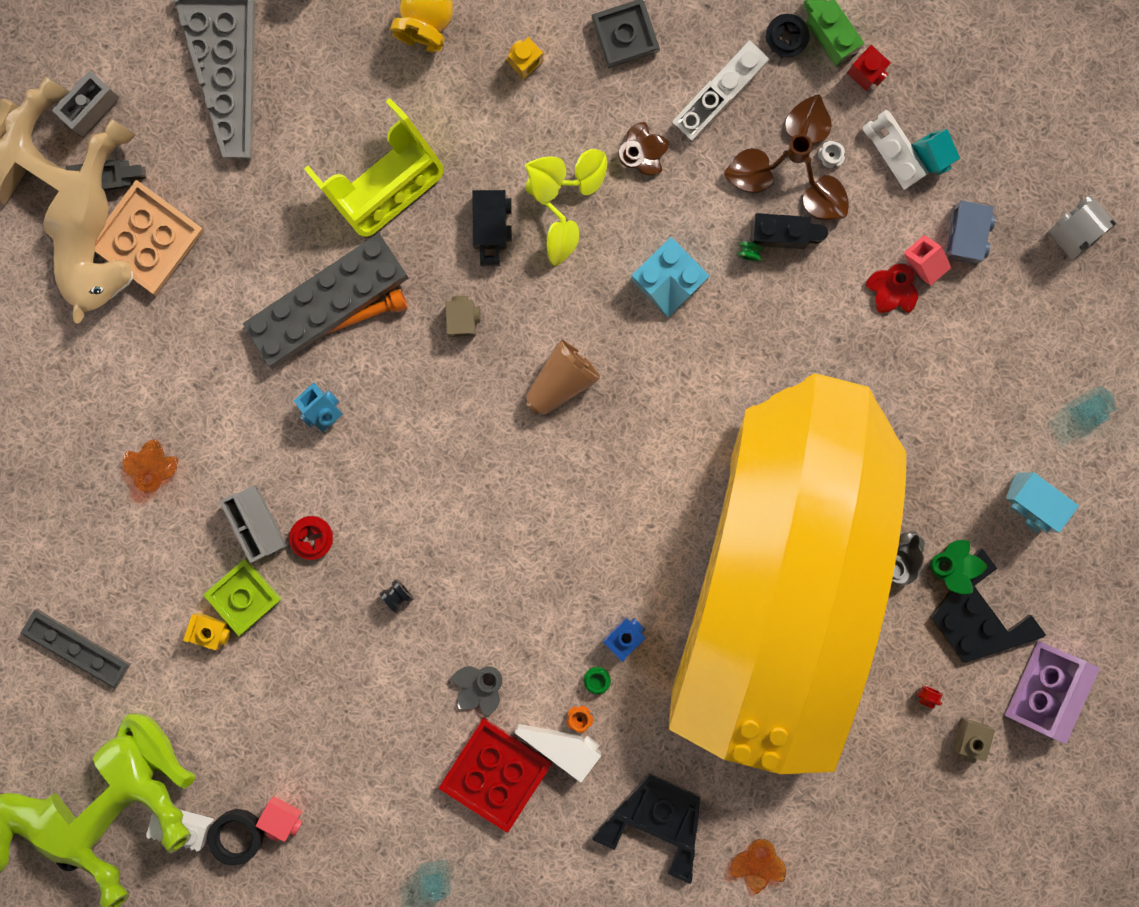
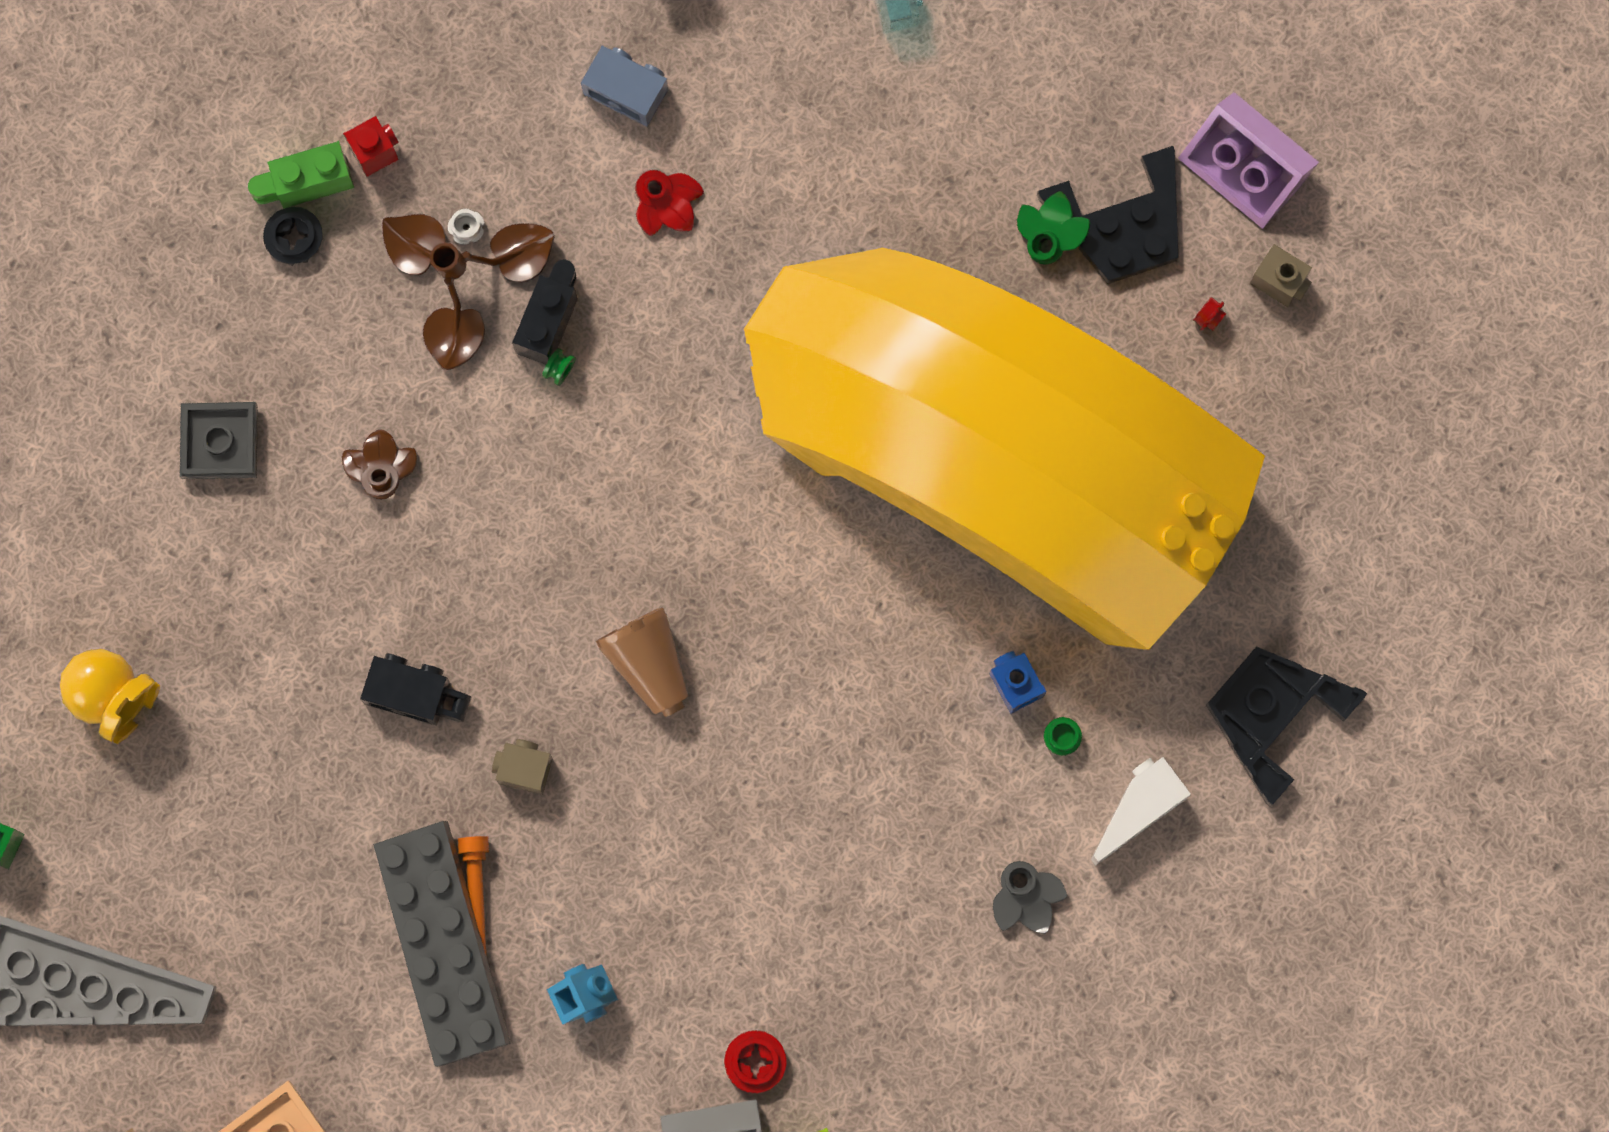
camera: 70 degrees left, 10 degrees down
(389, 183) = (310, 809): neon yellow windscreen -> none
(396, 596) = (869, 968): black wheel -> none
(435, 880) = (1267, 1031): clear light blue brick -> none
(495, 775) = (1149, 909): red plate -> none
(525, 57) = (206, 579): yellow brick -> none
(543, 184) = (390, 597): neon yellow plant -> none
(579, 726) = (1110, 765): orange plate -> none
(669, 277) = (559, 479): medium azure slope -> none
(721, 90) = (337, 340): white slope -> none
(758, 869) = (1375, 599): clear orange plate -> none
(896, 150) = (488, 144): white plate -> none
(909, 558) = (1022, 283): flat silver hair -> none
(927, 260) = (643, 147): coral brick -> none
(937, 151) = (507, 95): teal brick -> none
(1040, 503) = (999, 101): medium azure slope -> none

